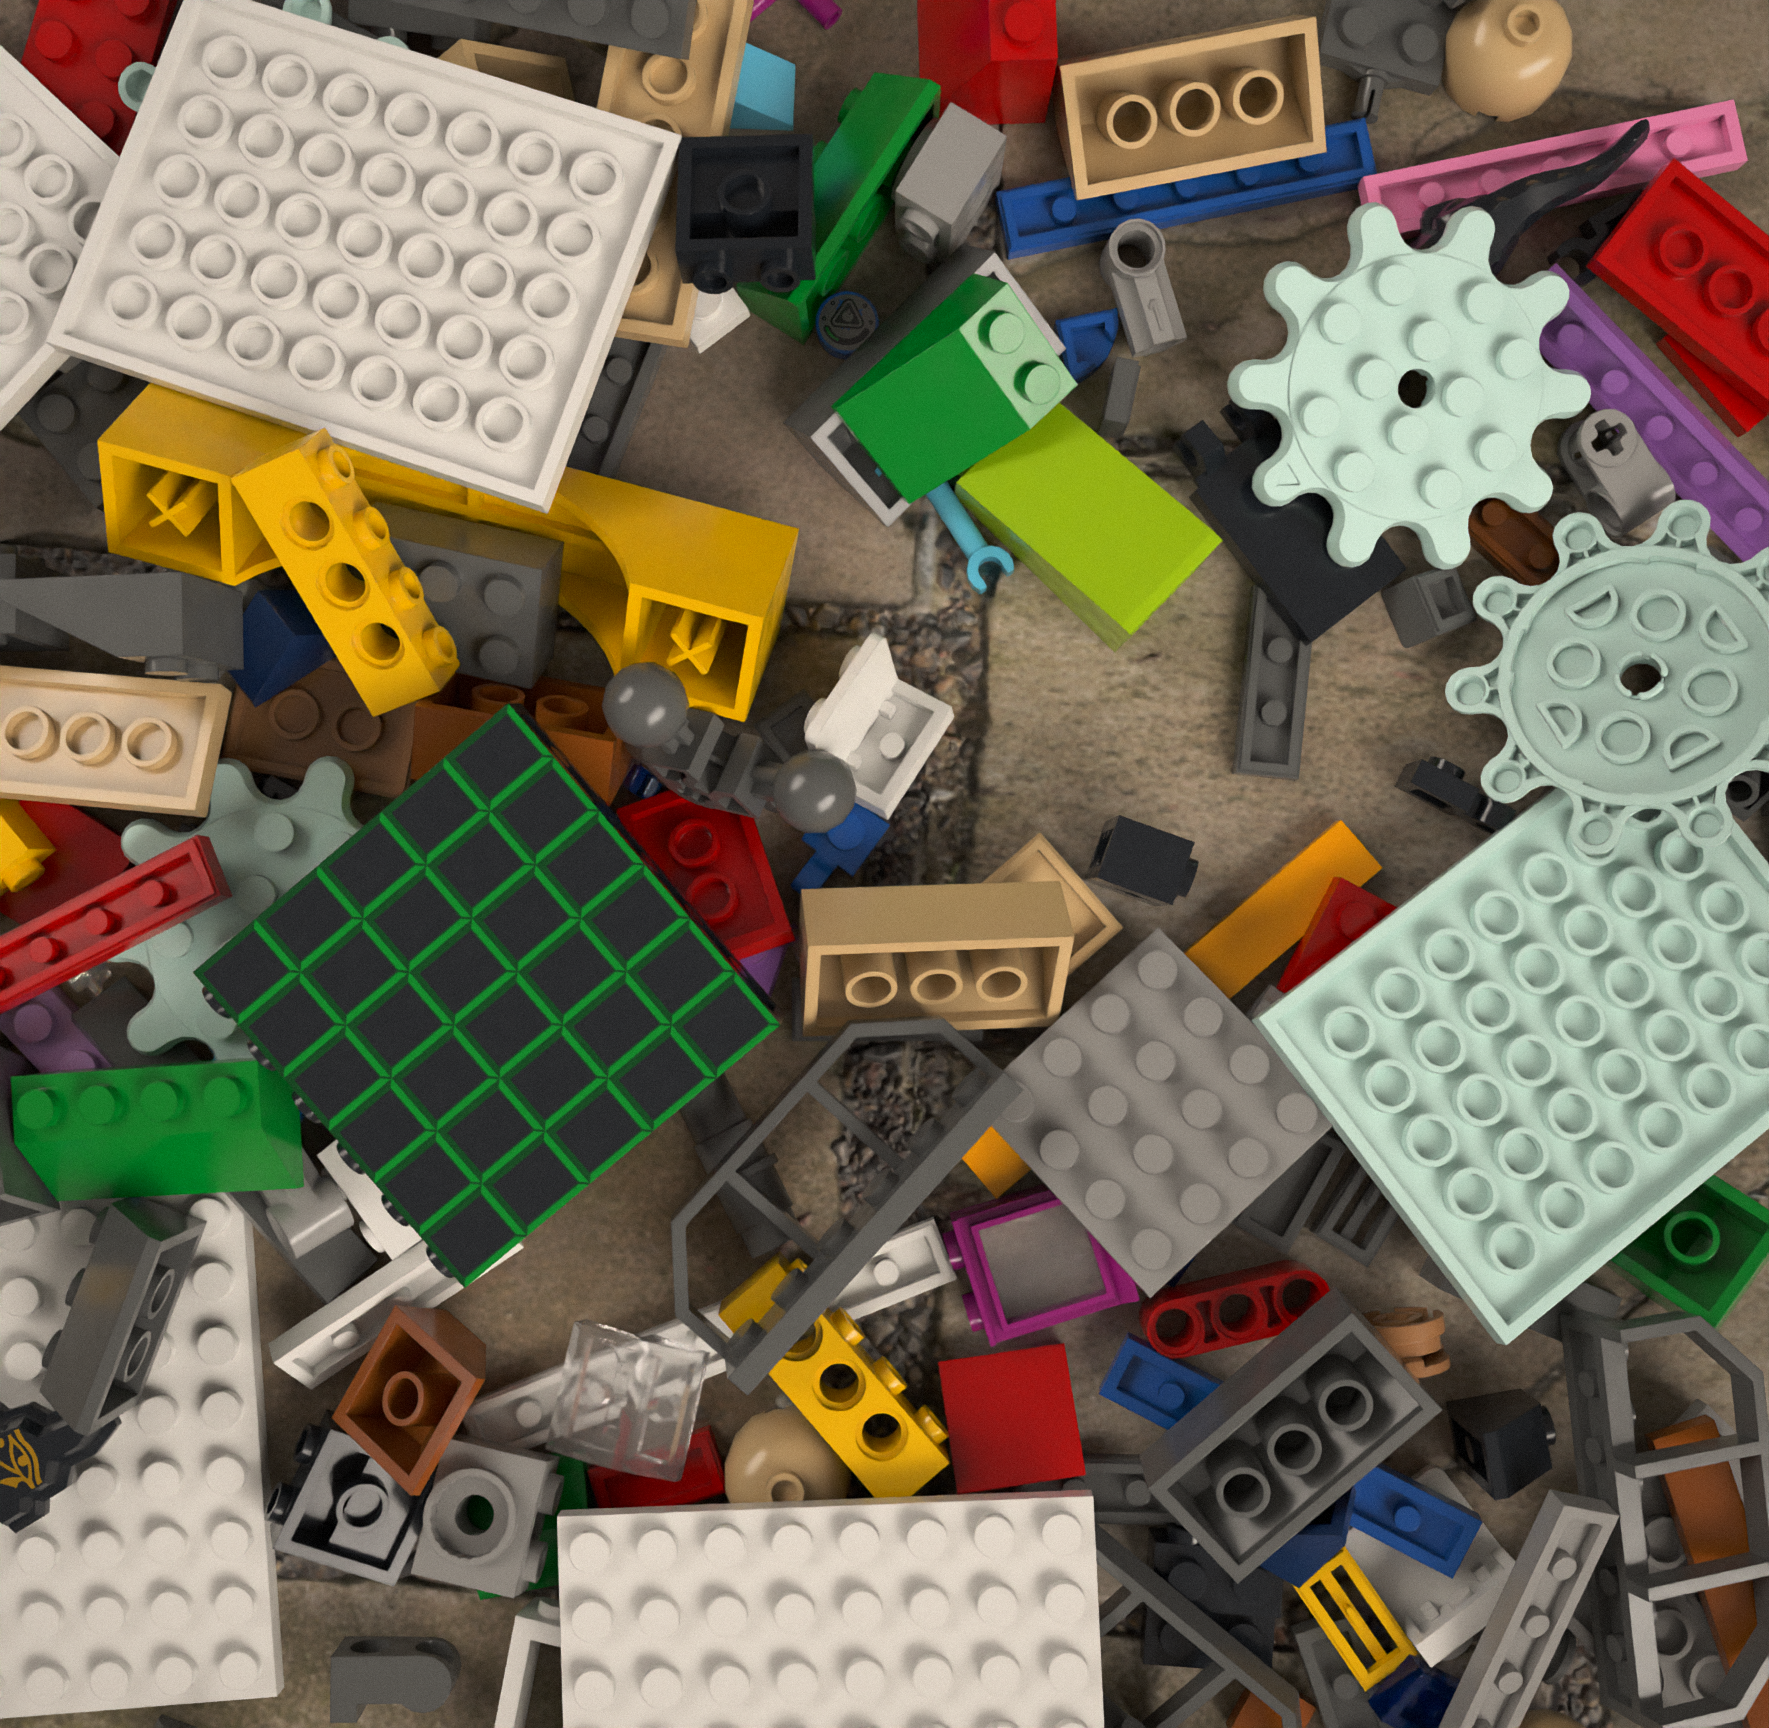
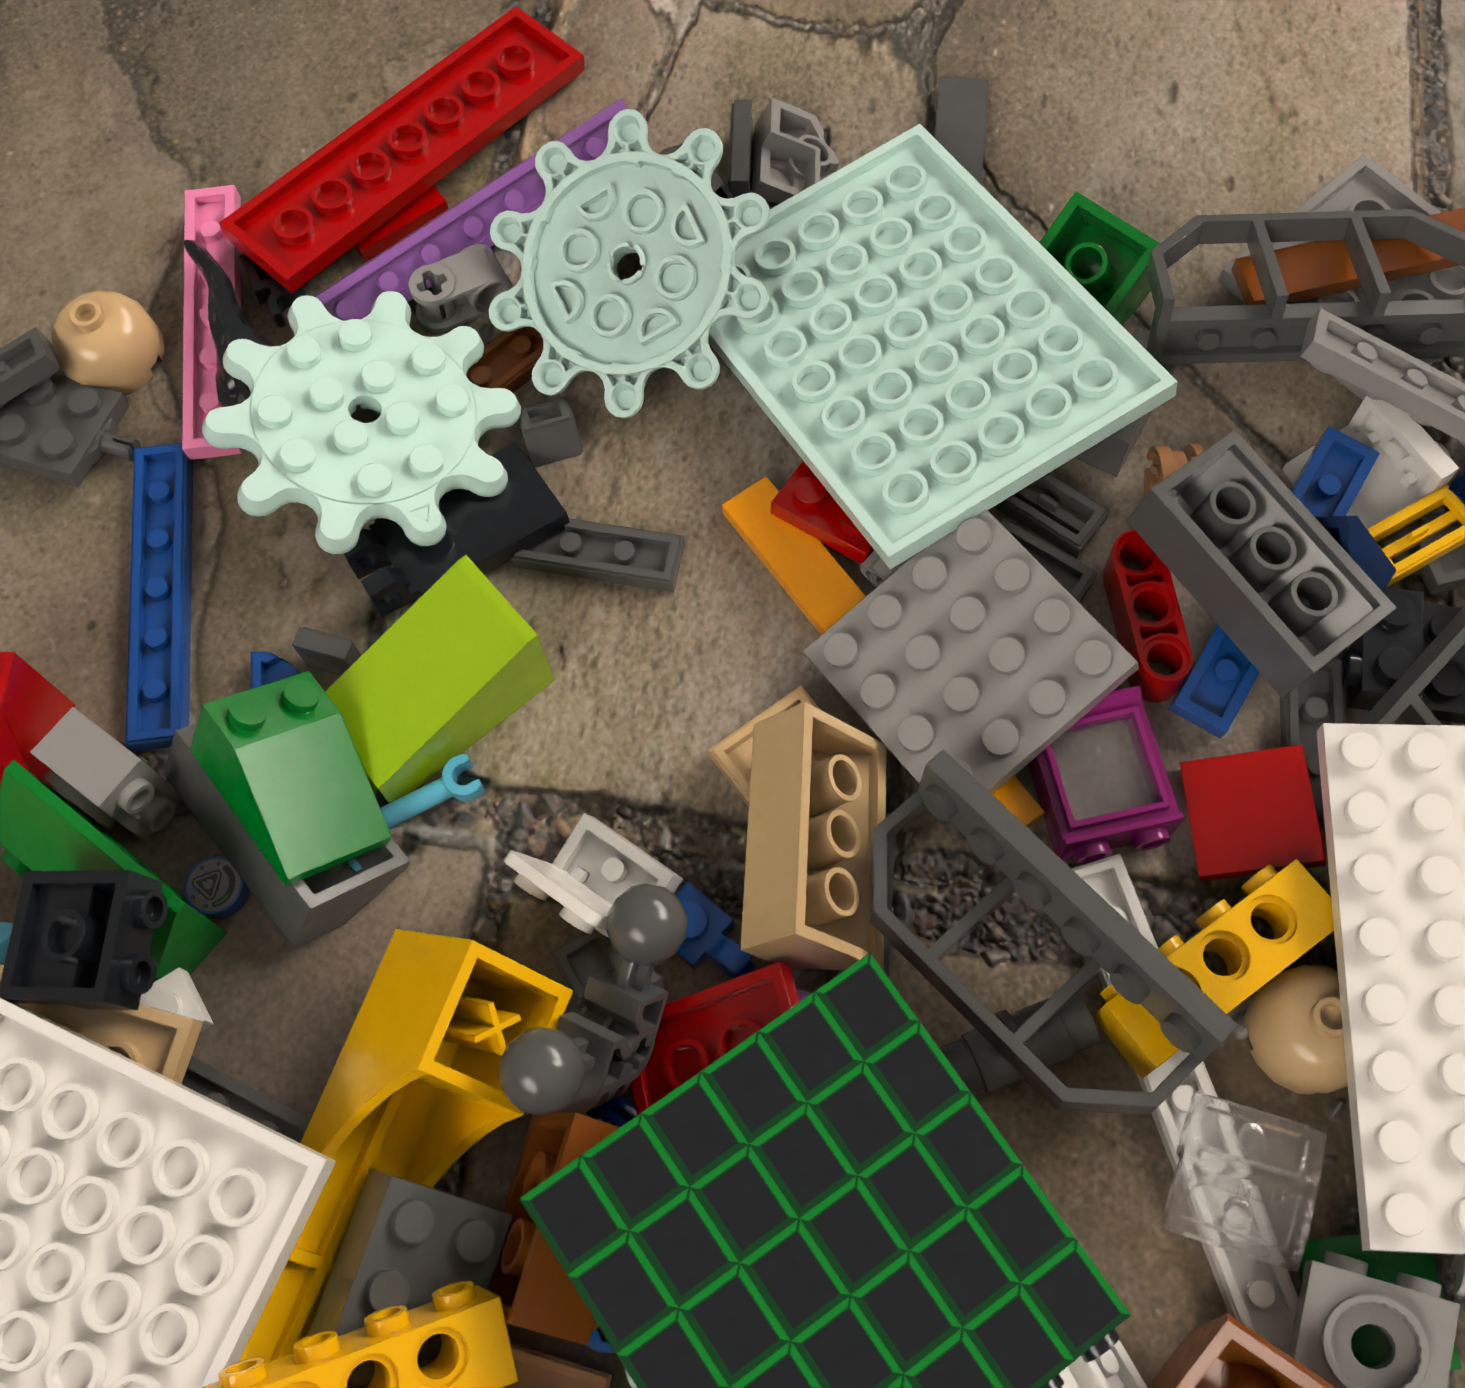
camera: 80 degrees left, 20 degrees down
(700, 1480) = (1337, 1191): red tile -> none
(1142, 862) = (742, 656): black brick -> none
(1144, 293) = (238, 626): light grey piece -> none
(1190, 106) = (90, 576): tan slope -> none
(1443, 787) = (704, 424): black plate -> none
(1501, 1440) = (1261, 410): black slope -> none

